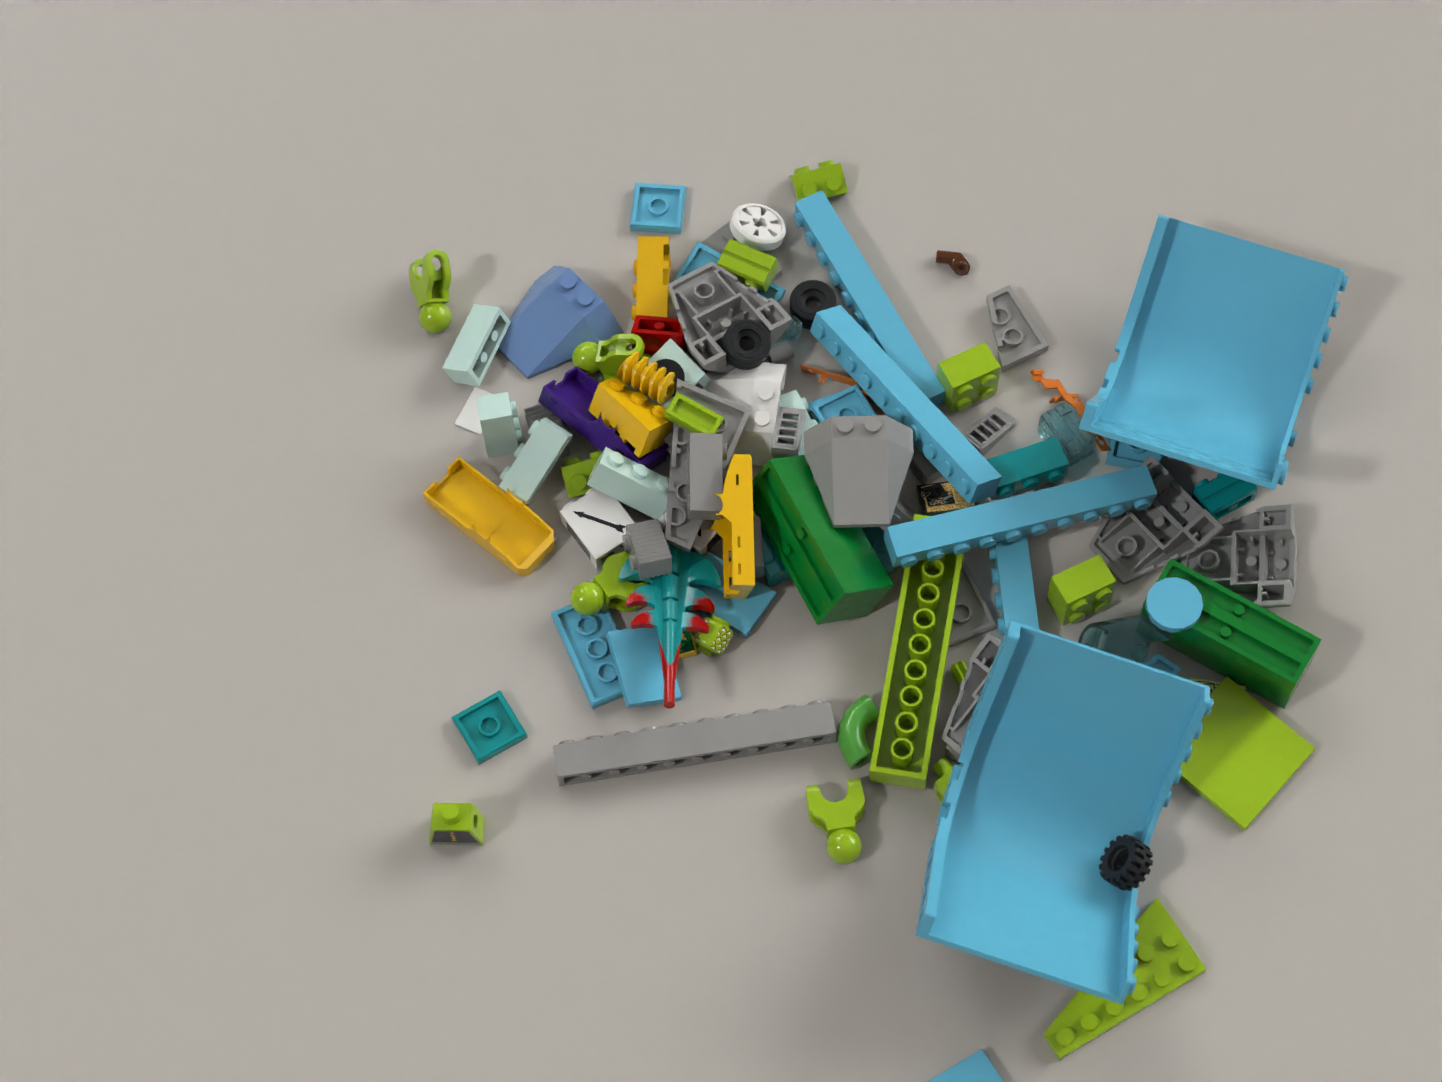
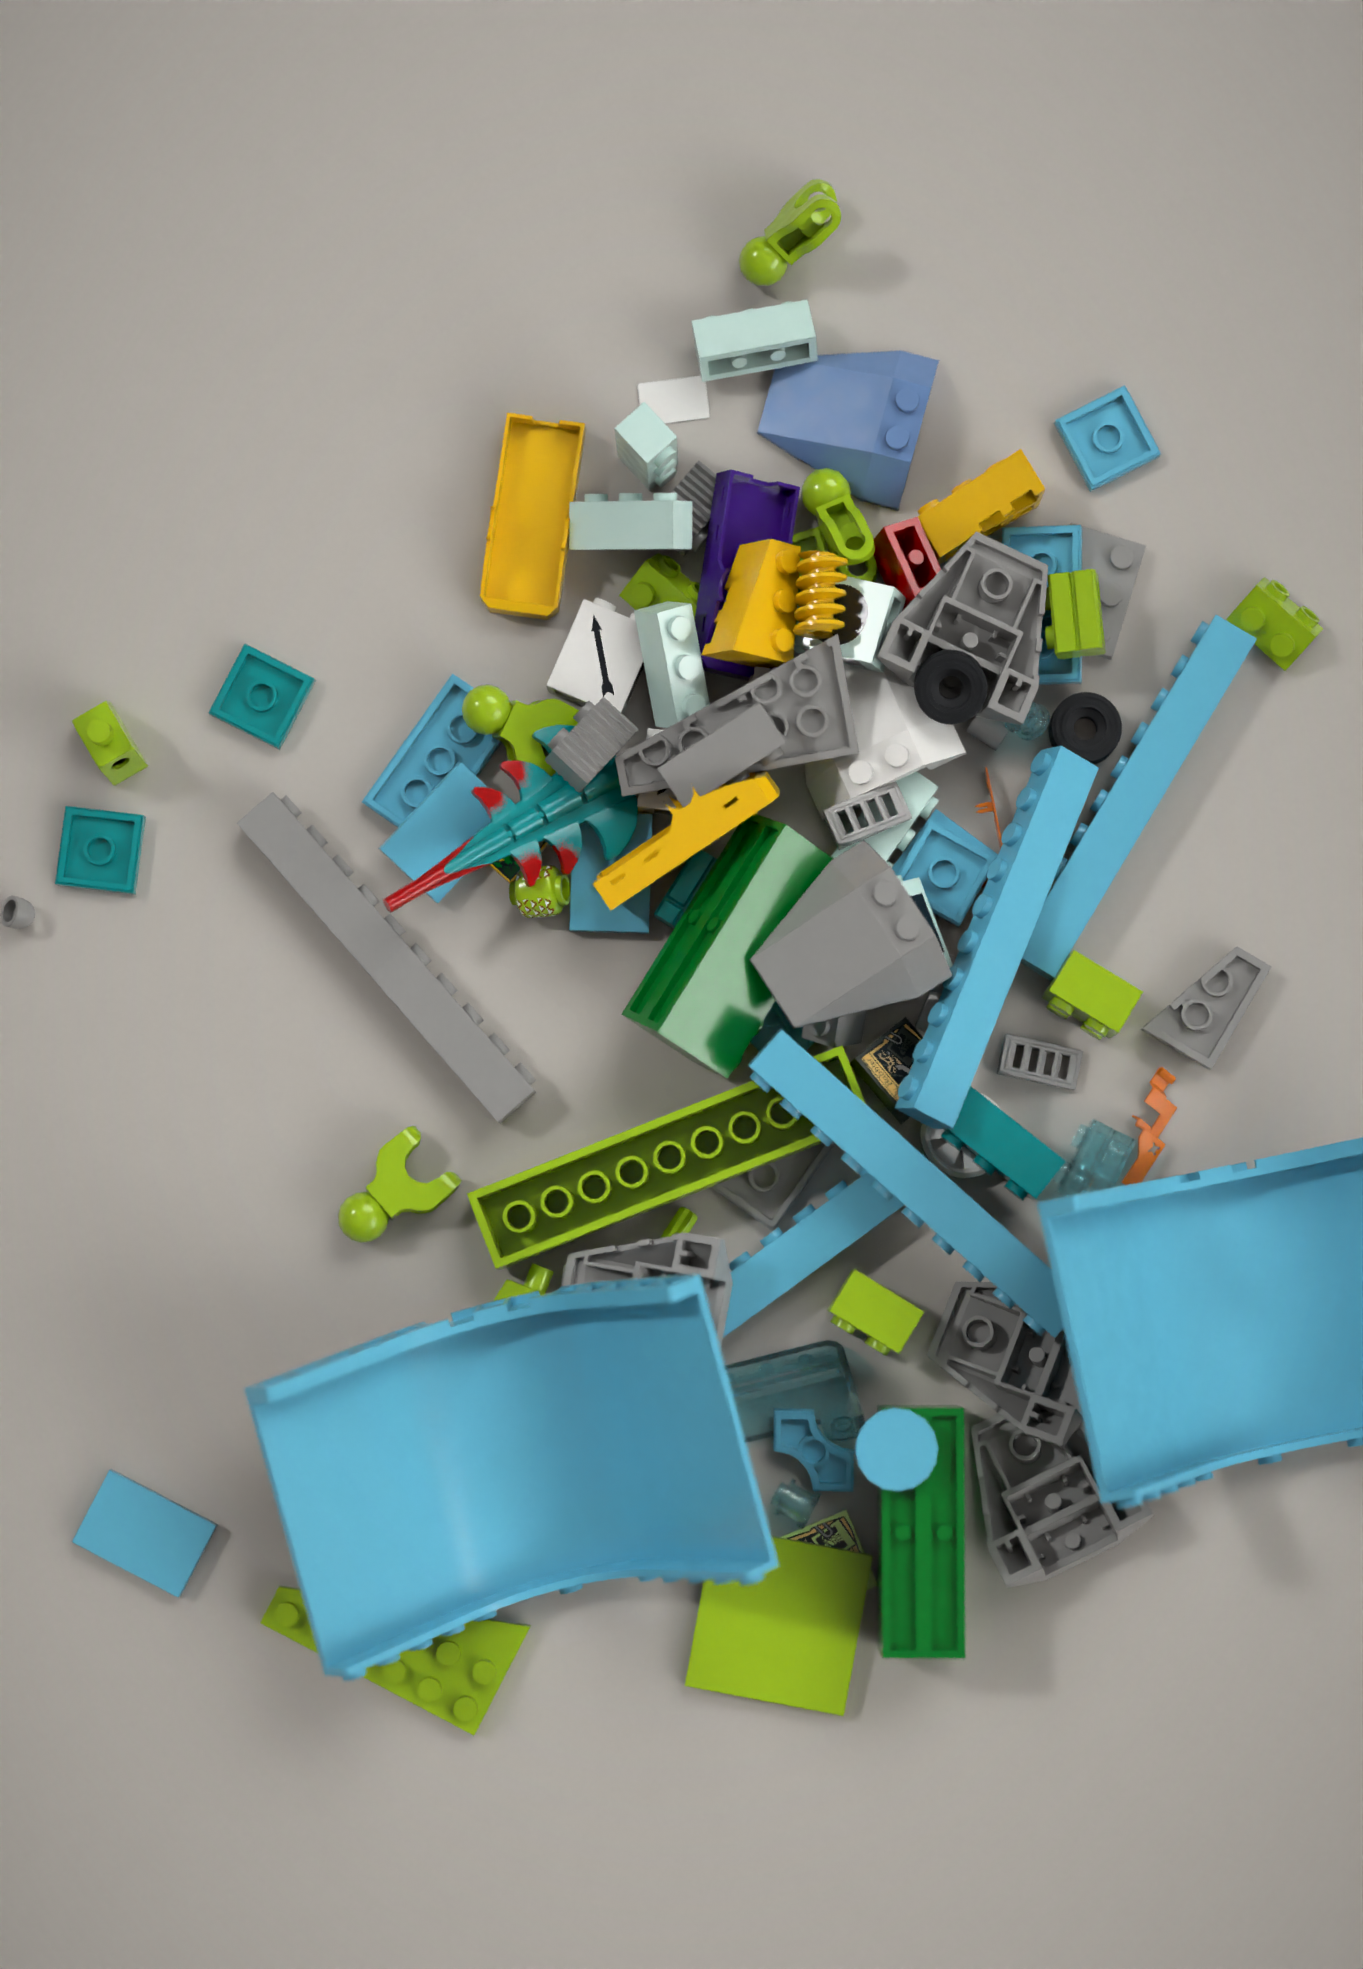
camera: 60 degrees right, 20 degrees up
(516, 874) = (100, 850): none -> teal tile
(523, 947) = (17, 913): none -> light grey hinge
(692, 415) = (796, 689): lime tile -> none
(758, 226) = (1161, 567): white wheel -> none
(758, 547) = (678, 876): dark grey tile -> none
(853, 729) = (519, 1138): bright green cylinder -> none
(955, 260) = (1269, 874): reddish brown arm -> none
(1125, 862) = (543, 1585): black tyre -> none

